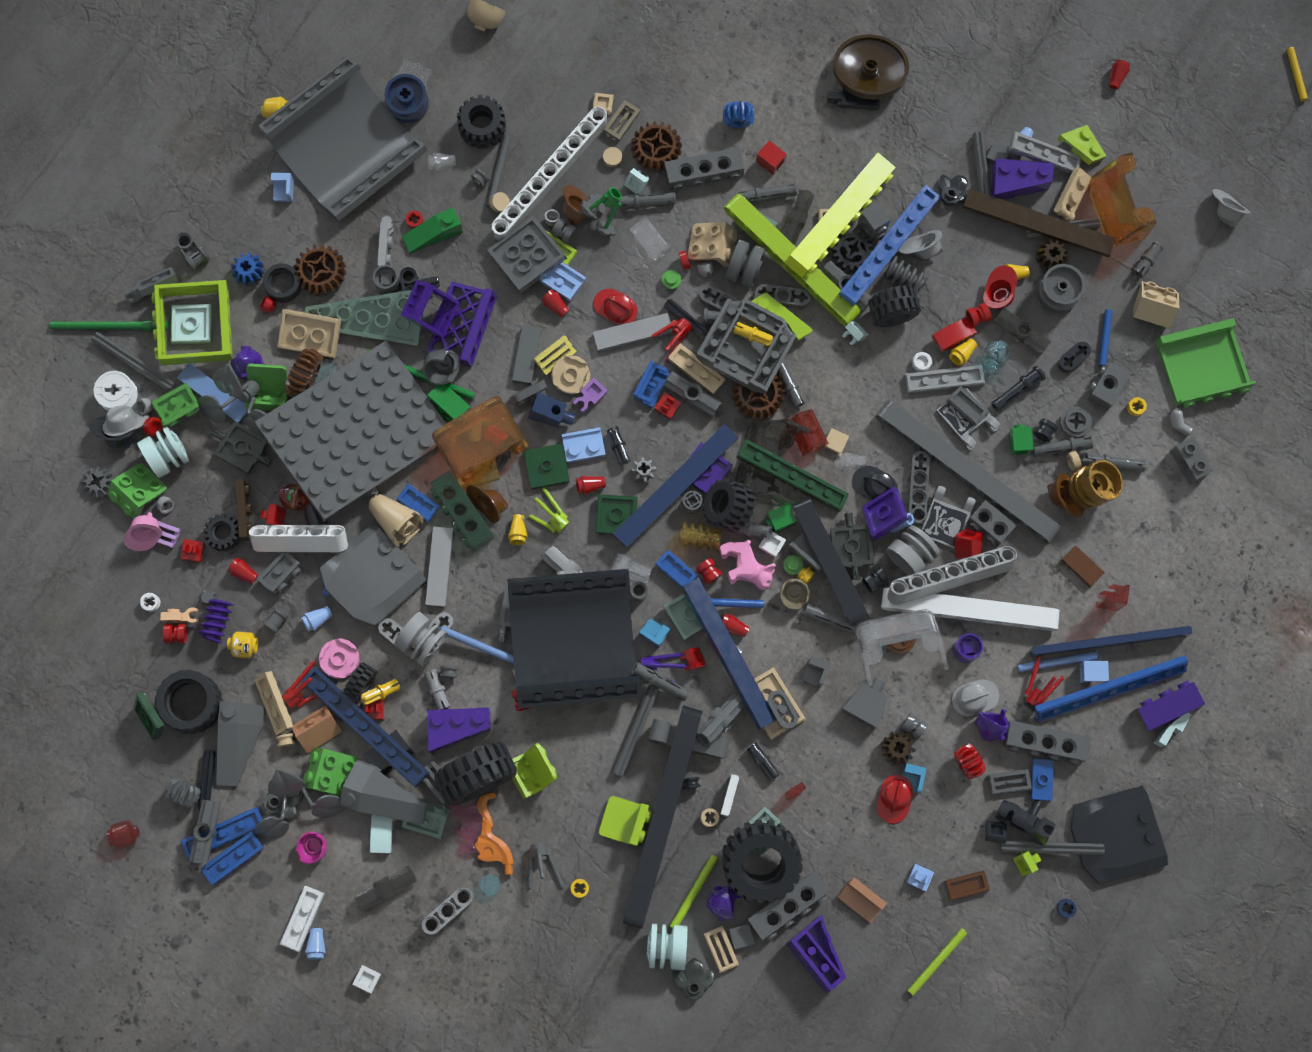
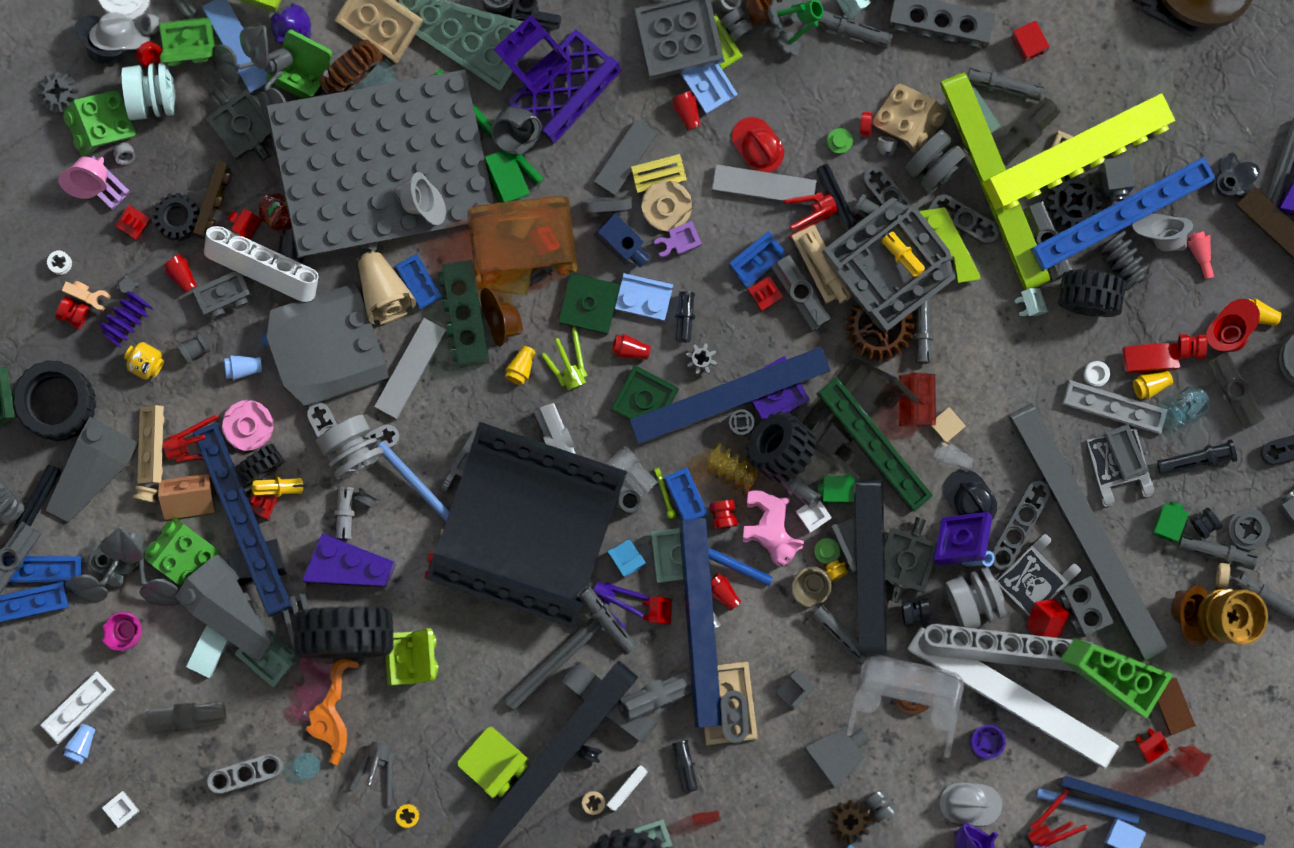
camera: 30 degrees right, 5 degrees up
(394, 440) = (422, 198): none -> light grey piece
(650, 239) = (836, 80): clear hinge -> none
(671, 587) = (671, 514): none -> lime hinge
(709, 374) = (814, 251): none -> tan pin
(953, 247) = (1201, 249): none -> coral cone
(1038, 560) = (1121, 678): none -> bright green wedge
(1083, 599) = (1153, 746): none -> red tile

